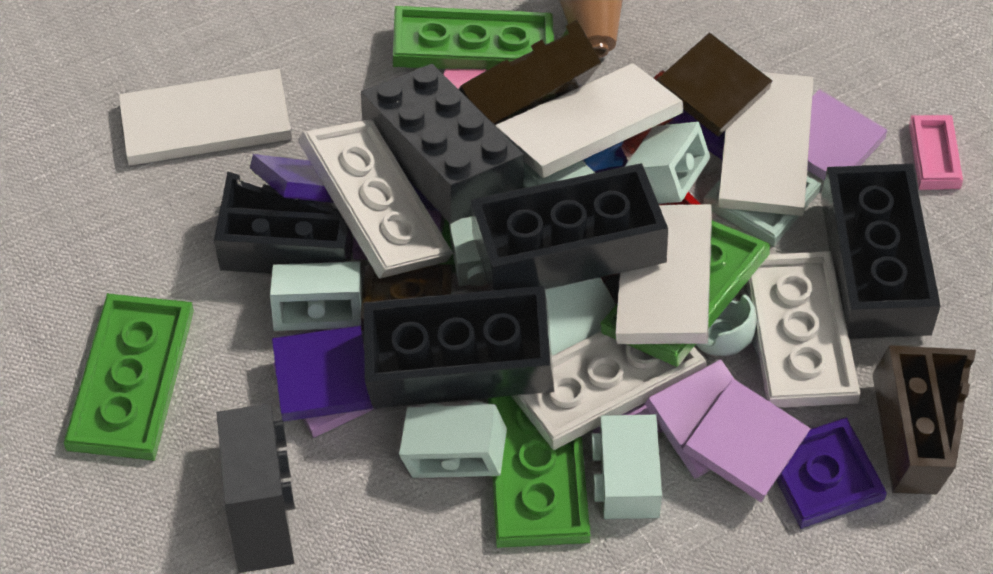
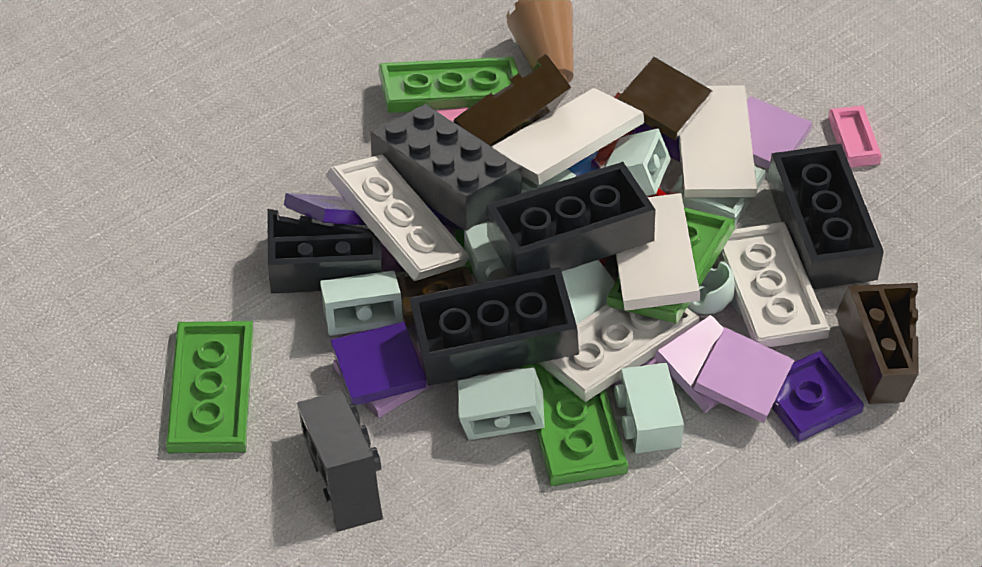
camera: 10 degrees left, 5 degrees down
(204, 117) = (230, 171): white tile -> none

